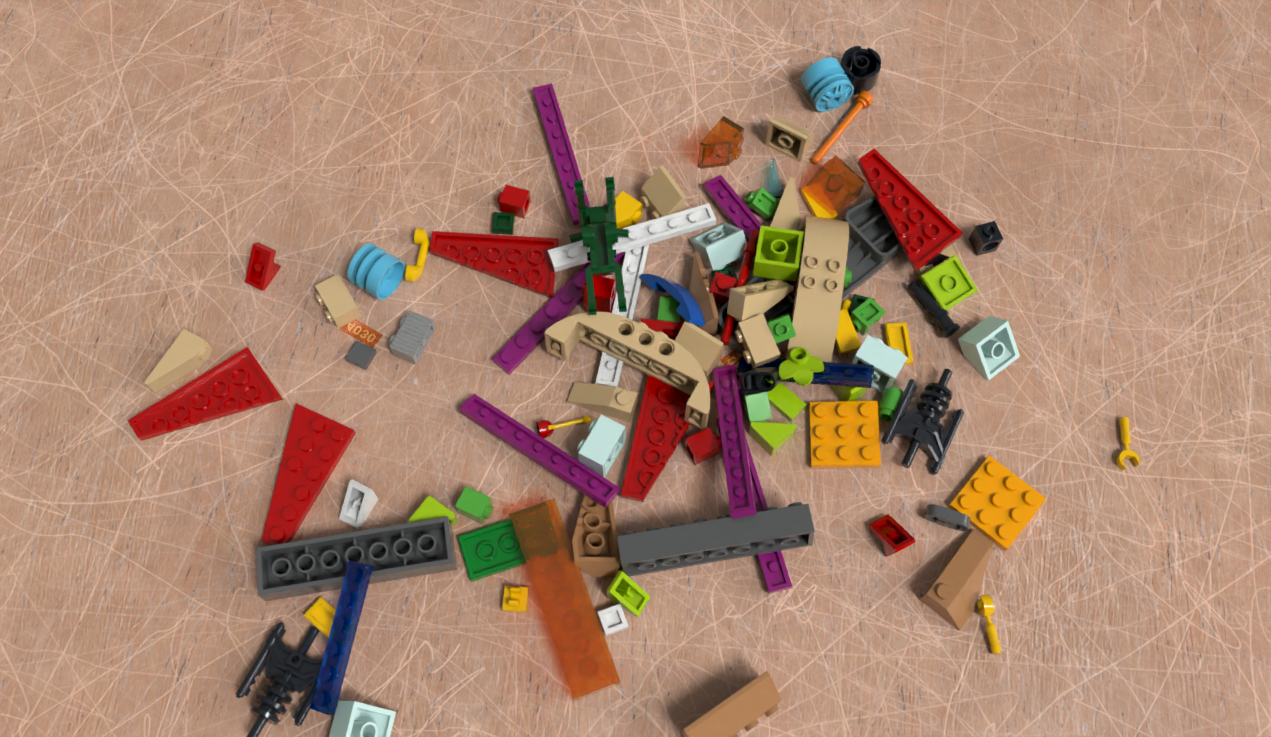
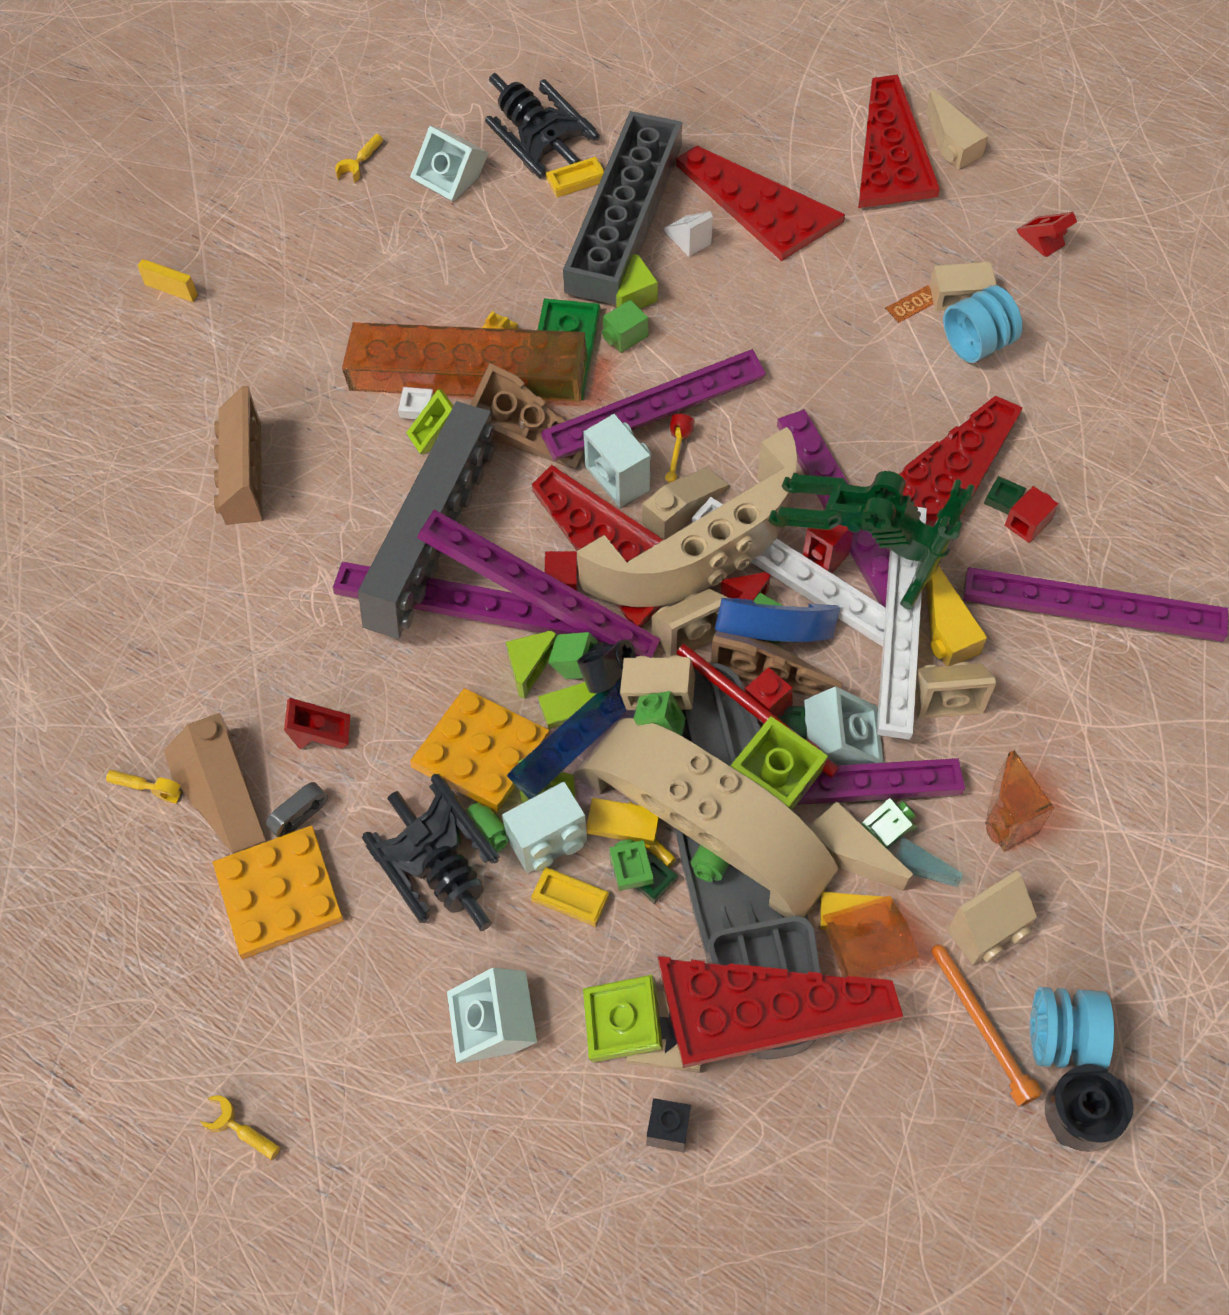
camera: 120 degrees right, 5 degrees down
(341, 638) = (547, 162): clear blue plate -> none
(361, 355) = (878, 291): dark grey tile -> none
(412, 337) = (875, 340): light grey brick -> none
(414, 272) = (970, 371): yellow bar -> none
(756, 298) = (719, 707): tan slope -> none
(800, 366) = (588, 711): lime plate -> none
(938, 315) = (577, 973): black pin -> none

